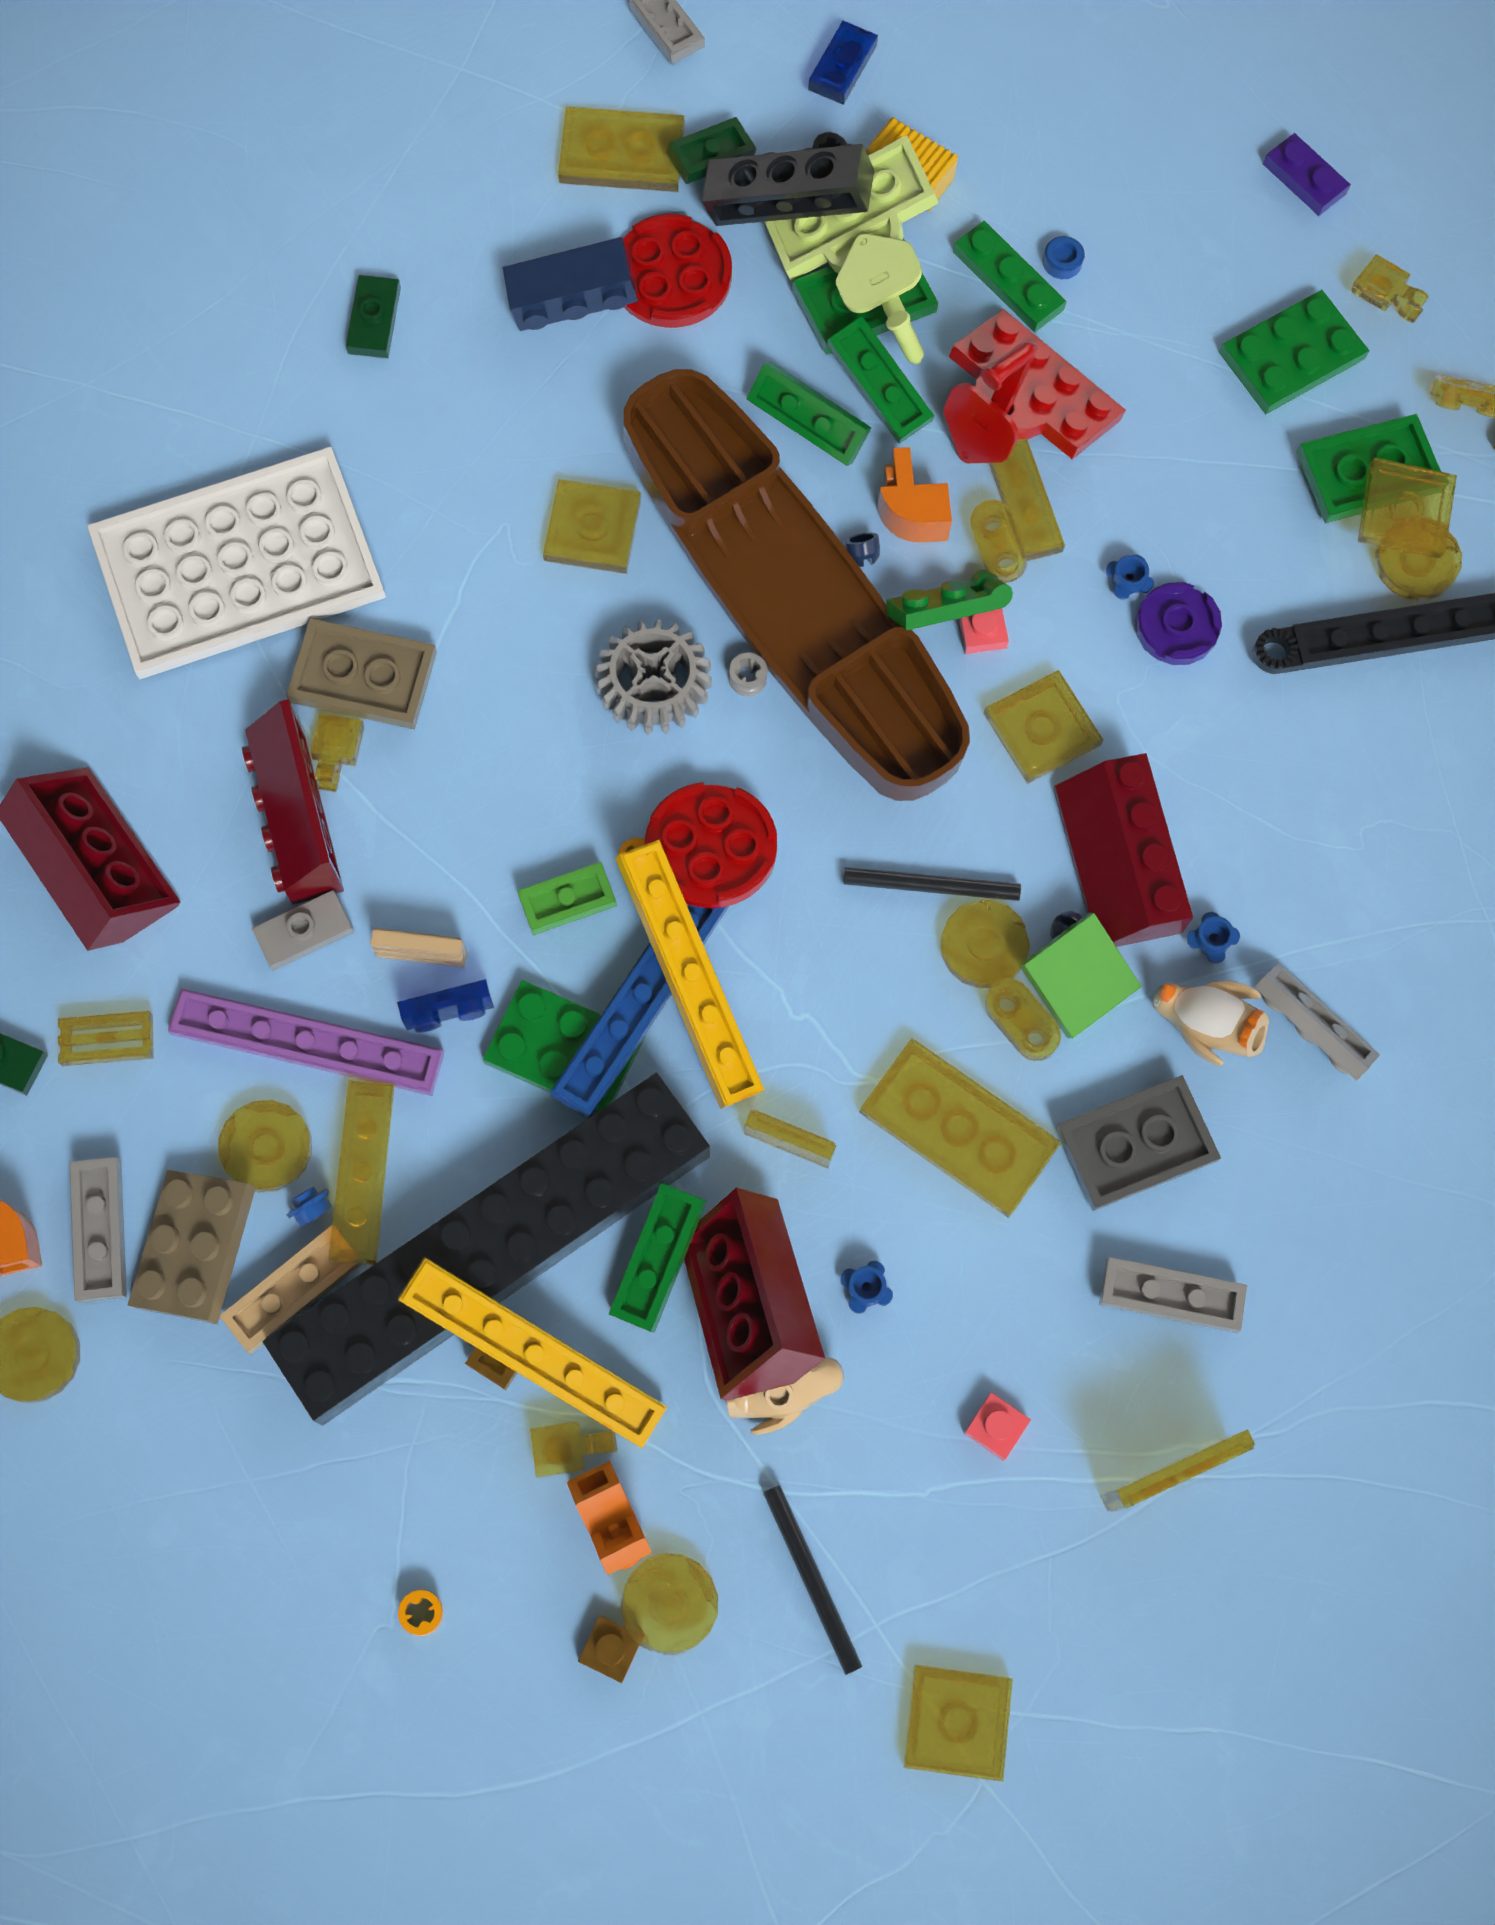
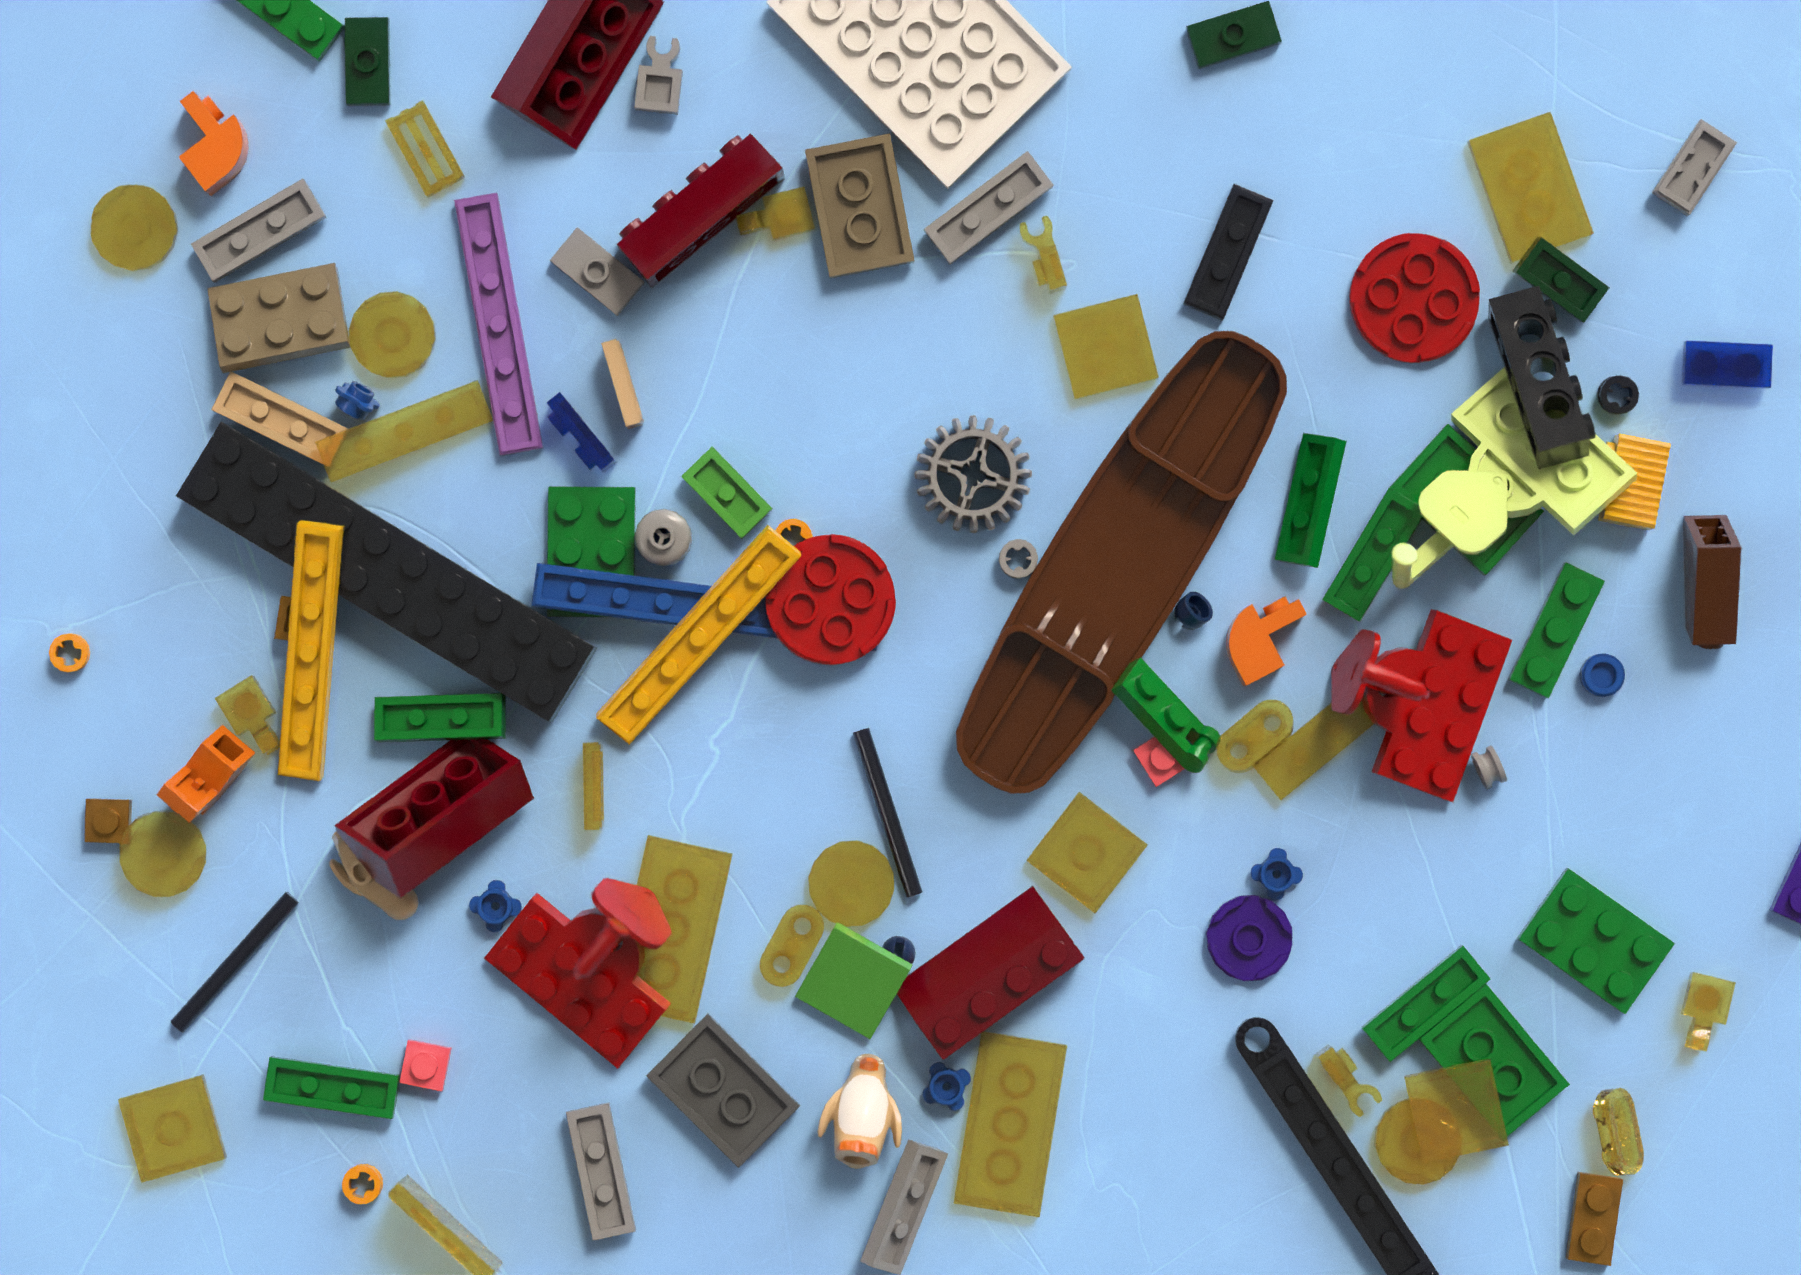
camera: 70 degrees right, 15 degrees up
(158, 799) = (659, 84): none -> light grey plate
(420, 567) = (988, 207): none -> light grey plate
(494, 536) = (1048, 266): none -> clear yellow plate
(559, 396) = (1228, 252): none -> black tile
(570, 284) = (1341, 213): dark blue brick -> none
(594, 974) = (679, 535): none -> light grey head
(973, 1224) = (583, 971): none -> red plate
(982, 1532) = (331, 1087): none -> green plate
(1021, 136) = (1711, 580): none -> reddish brown slope
(1079, 1547) = (355, 1173): none -> light orange bush
(1107, 368) = (1488, 767): none -> light grey bush
(1272, 896) = (1010, 1123): none -> clear yellow tile
(1297, 501) = (1425, 1003): none -> green plate
(1335, 592) = (1339, 1068): none -> clear yellow plate

